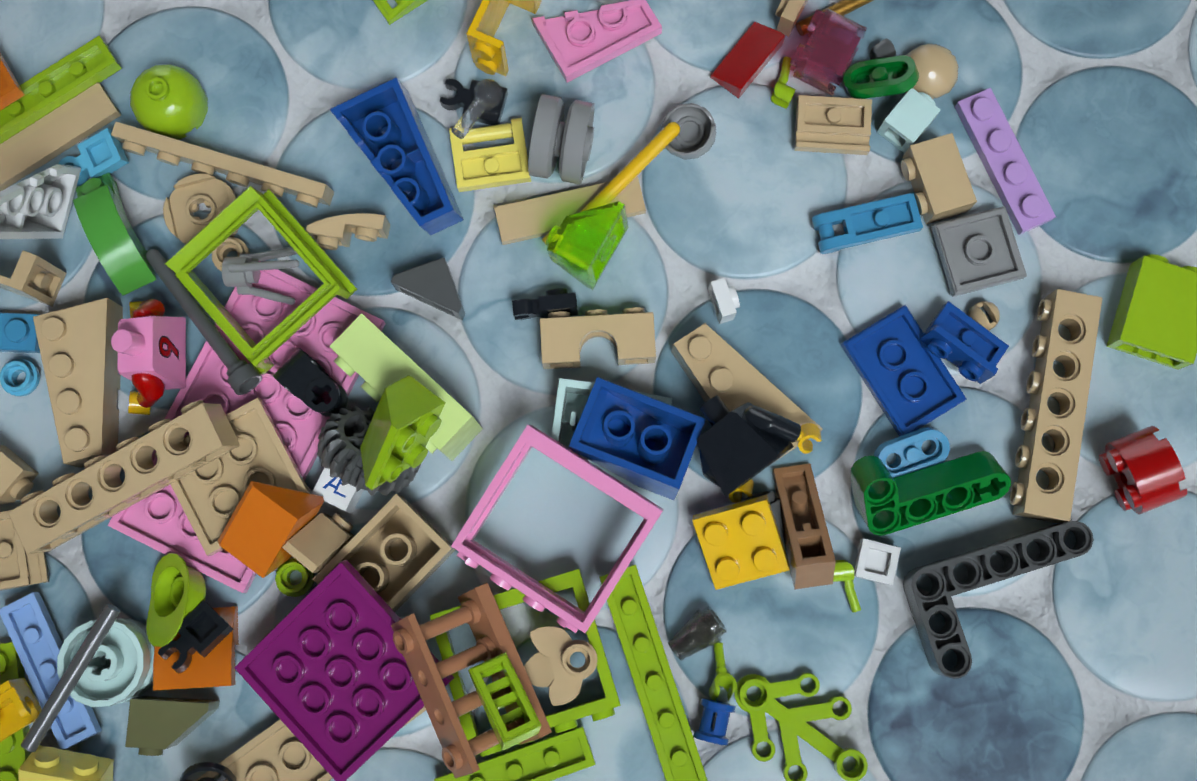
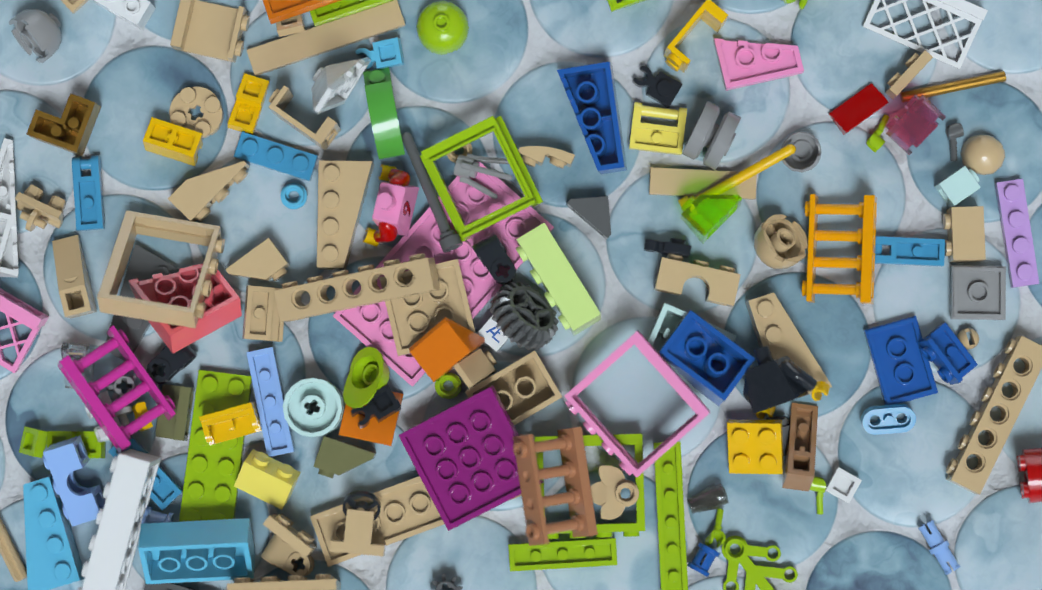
camera: 15 degrees right, 5 degrees up
(70, 678) = (292, 412): dark grey bar -> none
(185, 200) = (436, 103): tan plate -> none
(207, 161) = (459, 80): tan plate -> none
(399, 431) = (551, 311): lime slope -> none
(486, 96) = (667, 87): clear bar -> none
(532, 724) = (583, 504): lime slope -> none
(694, 255) = (780, 242): none -> tan cylinder
(723, 300) = (791, 279): white plate -> none
(814, 251) = (863, 263): none -> light orange fence
(833, 125) = (904, 174): tan plate -> none
(881, 77) = (948, 151): green plate -> none
(926, 494) = (889, 449): green beam -> none
(980, 574) = (910, 513): dark grey beam -> none
(1034, 611) = (939, 547): none -> light blue pin

